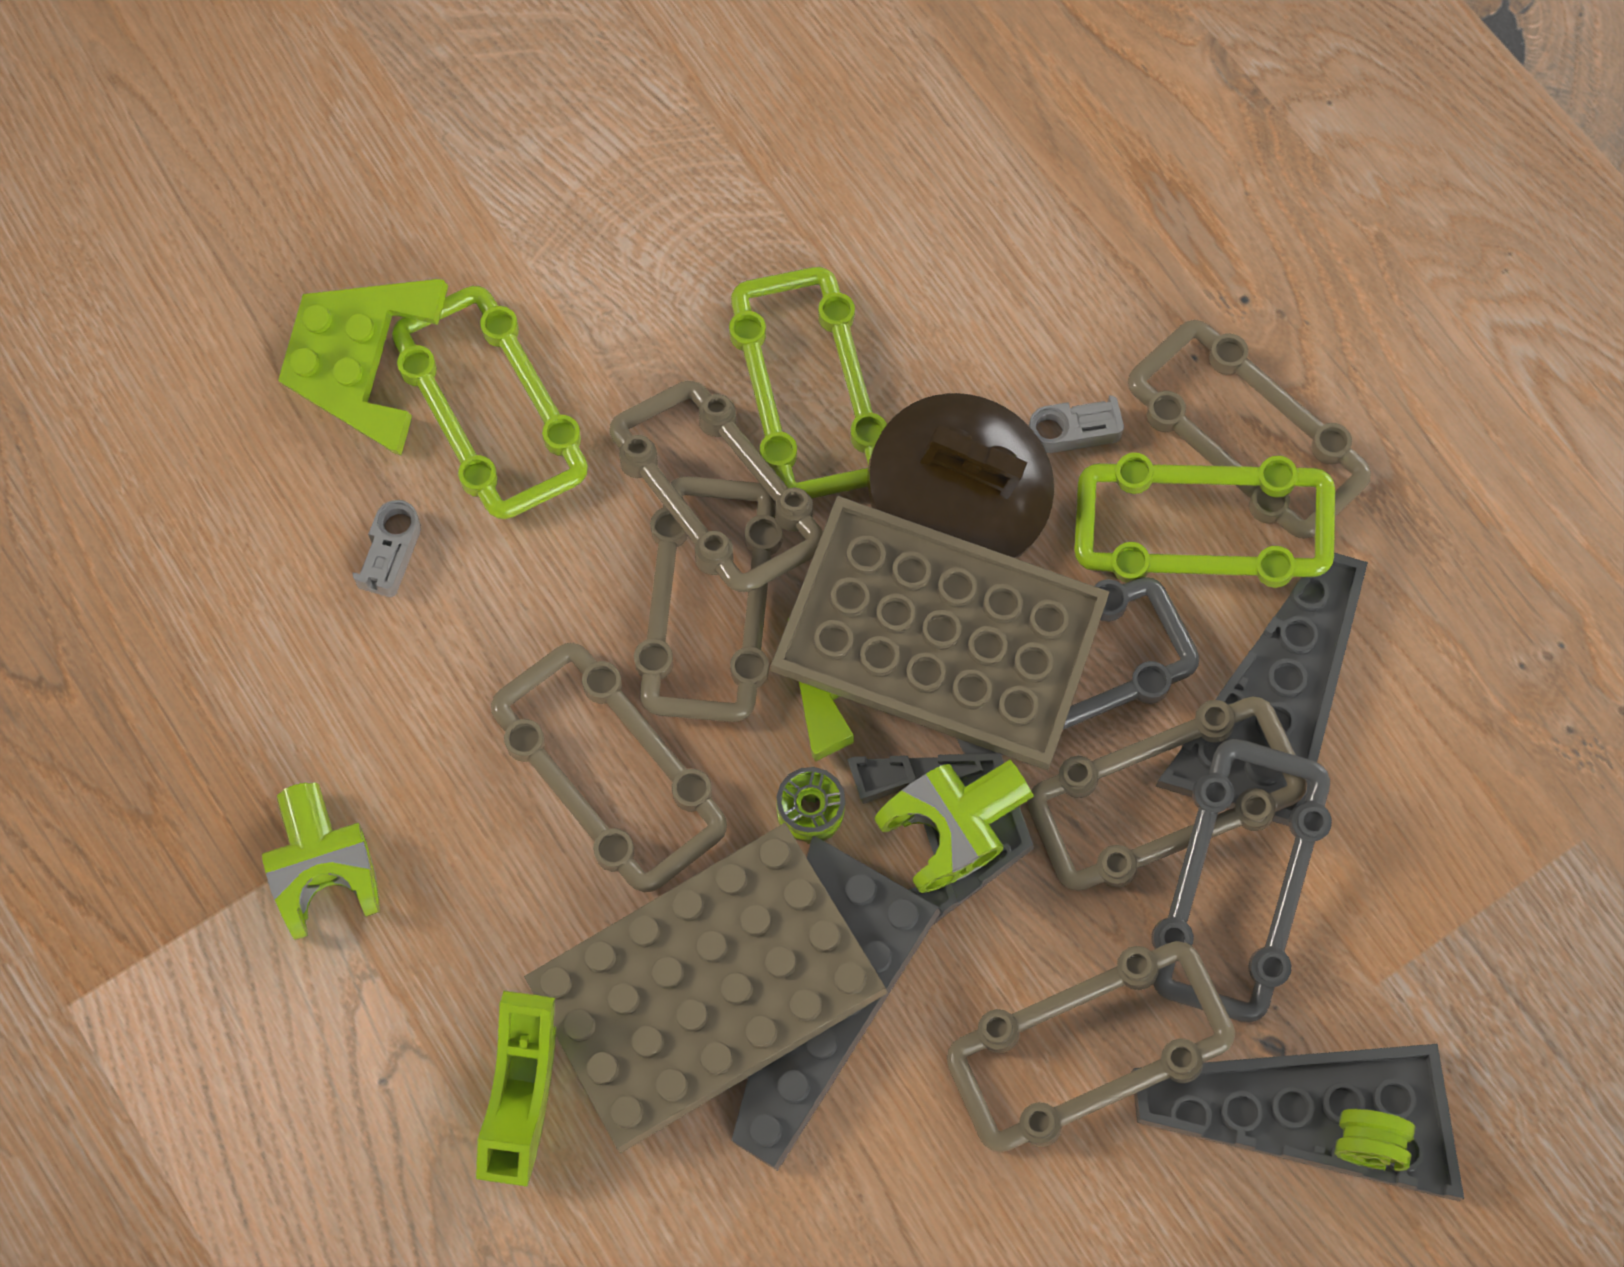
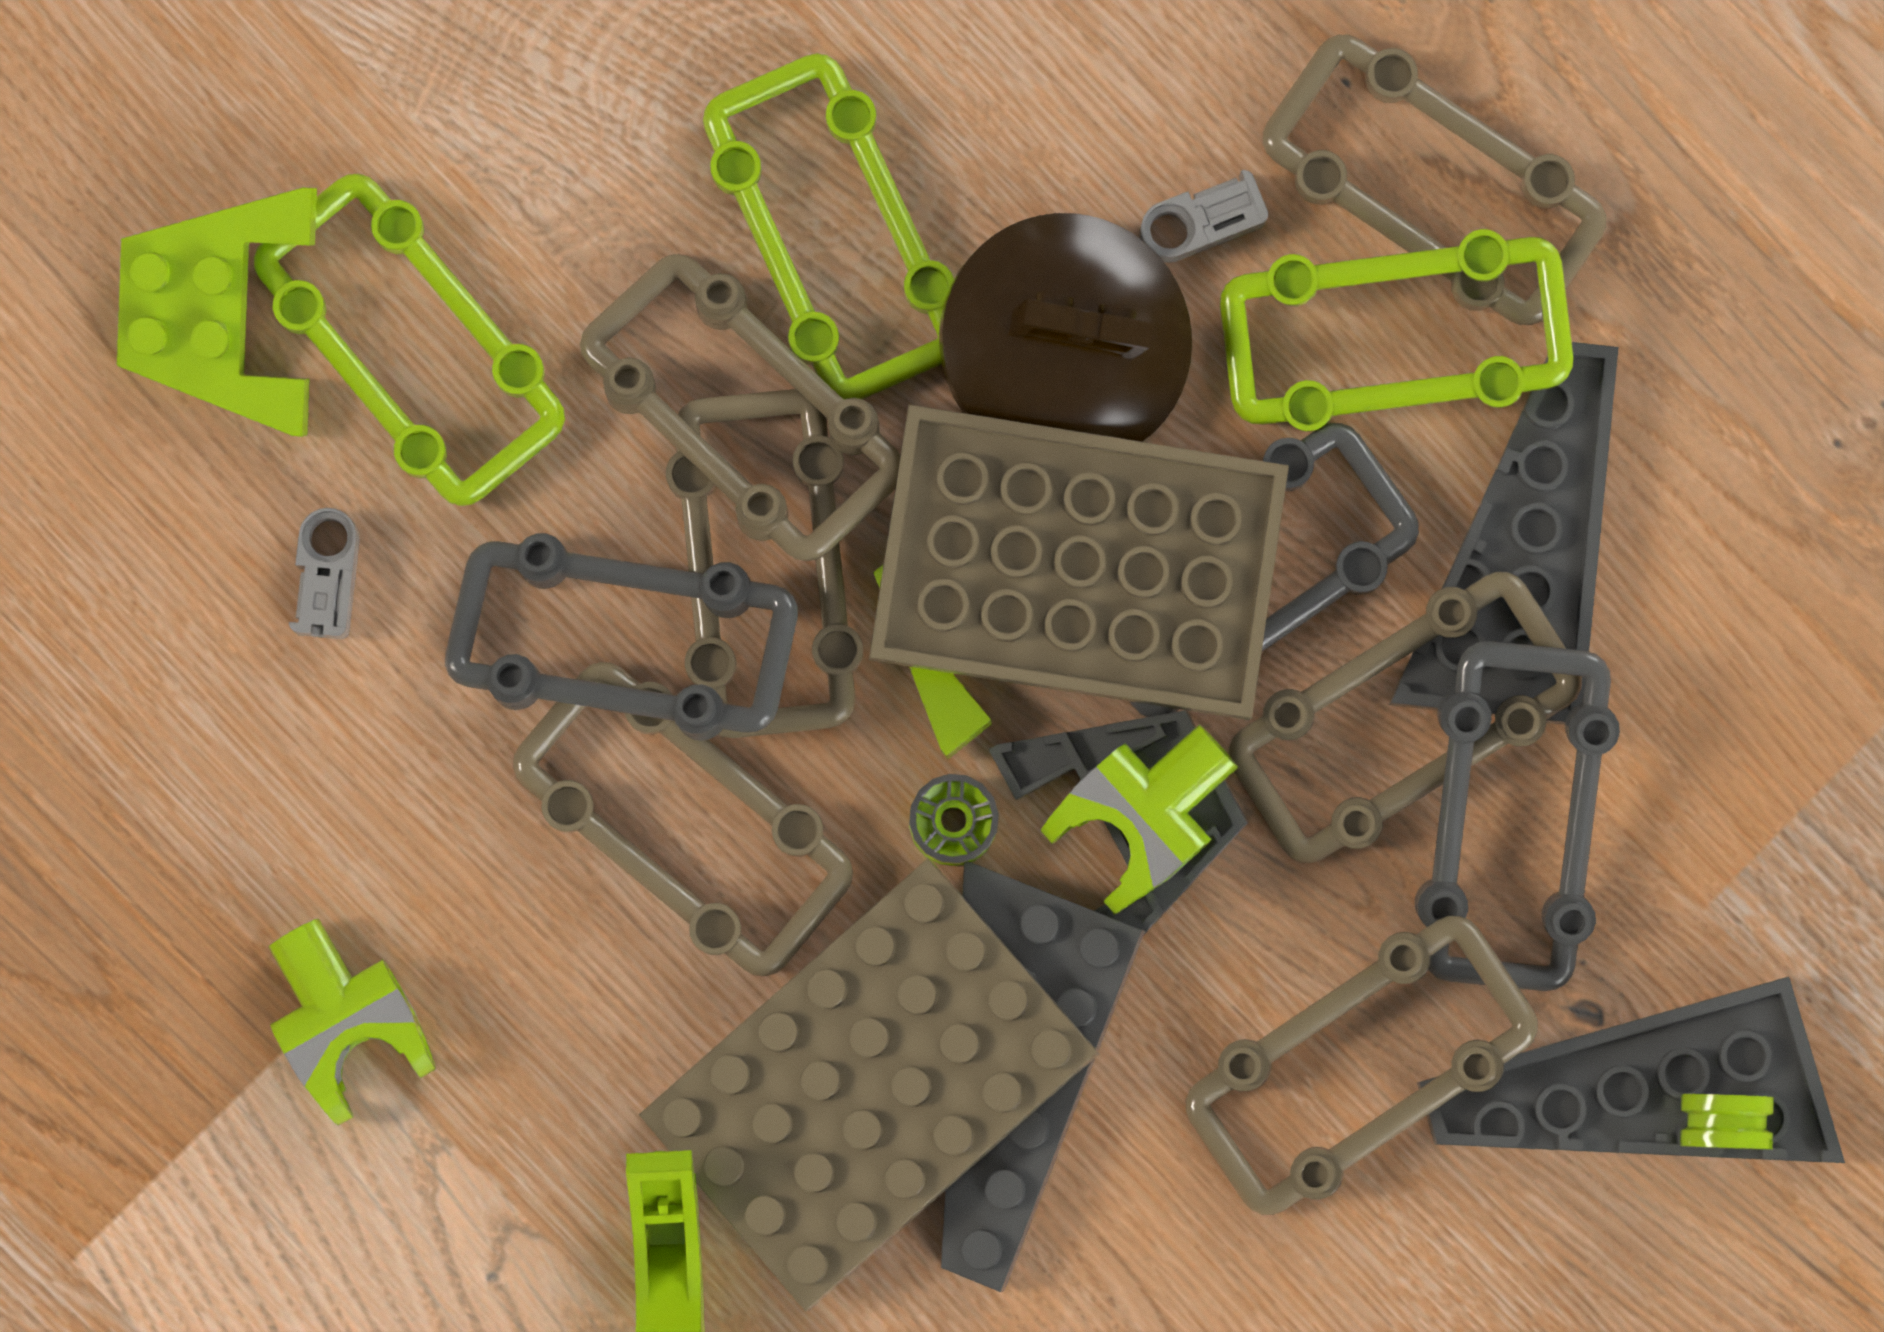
camera: 15 degrees left, 15 degrees up
(634, 679) = (696, 709): none -> dark grey bar

